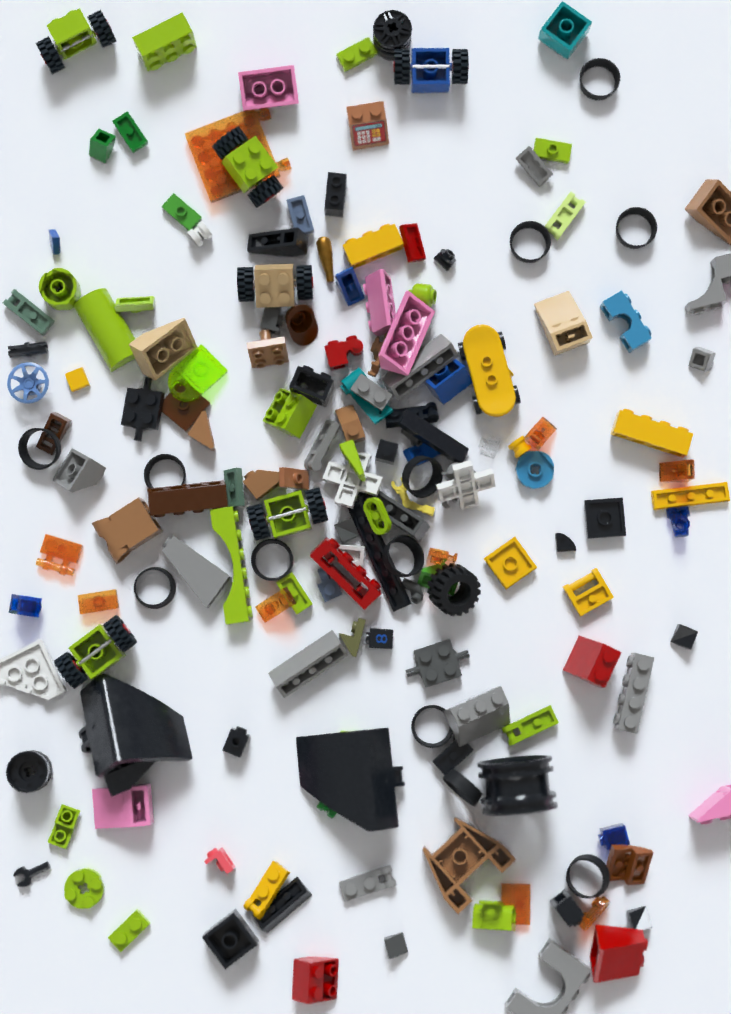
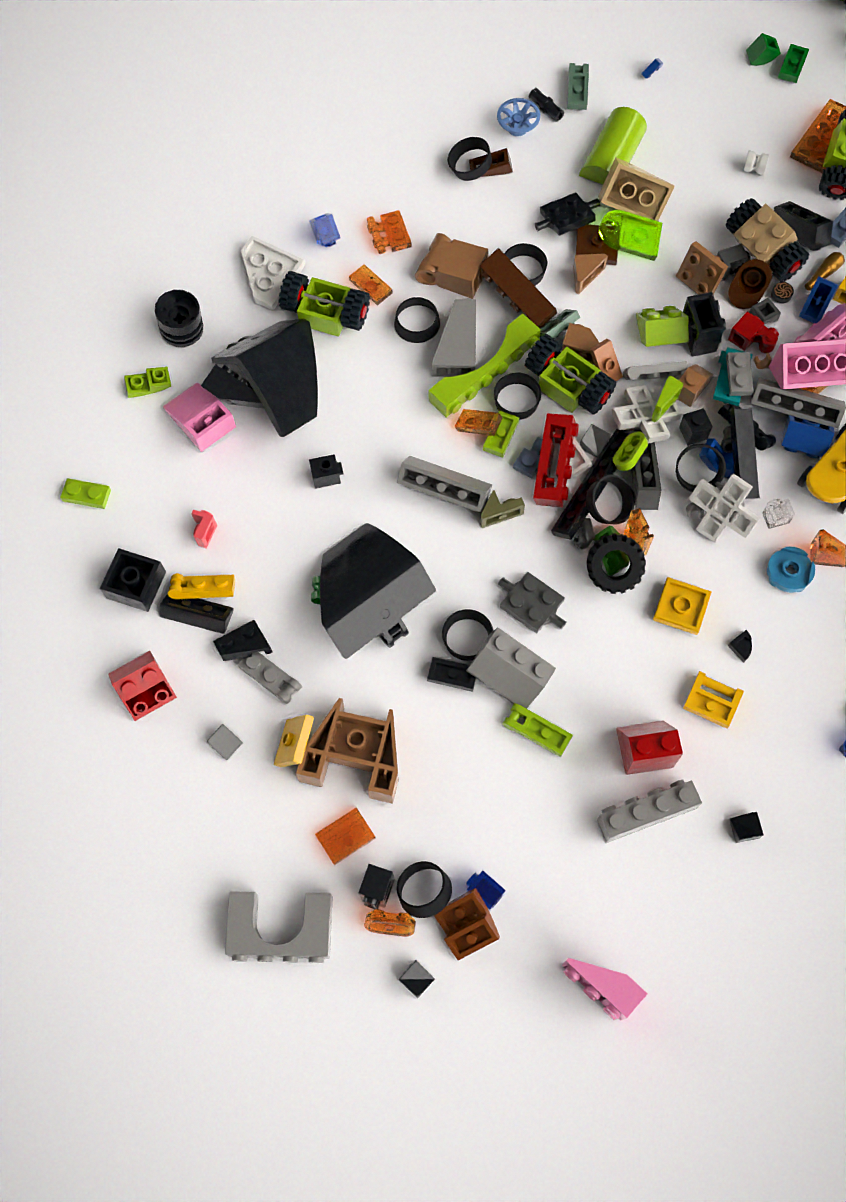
camera: 60 degrees right, 15 degrees down
(29, 873) = (86, 381): black bar -> none
(55, 280) = (616, 90): lime brick -> none
(73, 892) = (92, 424): lime plate -> none
(77, 379) = (551, 154): yellow tile -> none
(78, 472) = (475, 201): light grey slope -> none
(135, 304) = (652, 153): lime plate -> none
(181, 212) = (762, 138): bright green plate -> none
(321, 302) = (782, 292): none -> tile
(330, 330) = (766, 311): none -> dark grey slope
(331, 887) = (242, 642): none -> black wing
(380, 638) = (516, 533): black brick -> none
(401, 491) = (670, 496): light yellow piece -> none
(431, 899) = (293, 741): none -> yellow plate
(462, 787) = (428, 698): black tyre -> none
(494, 916) = (318, 816): lime piece -> none
(517, 785) = (470, 741): black wheel -> none
(519, 447) = (801, 538): yellow wheel -> none
(604, 518) = (799, 666): black plate -> none
(616, 952) = (364, 972): red slope -> none

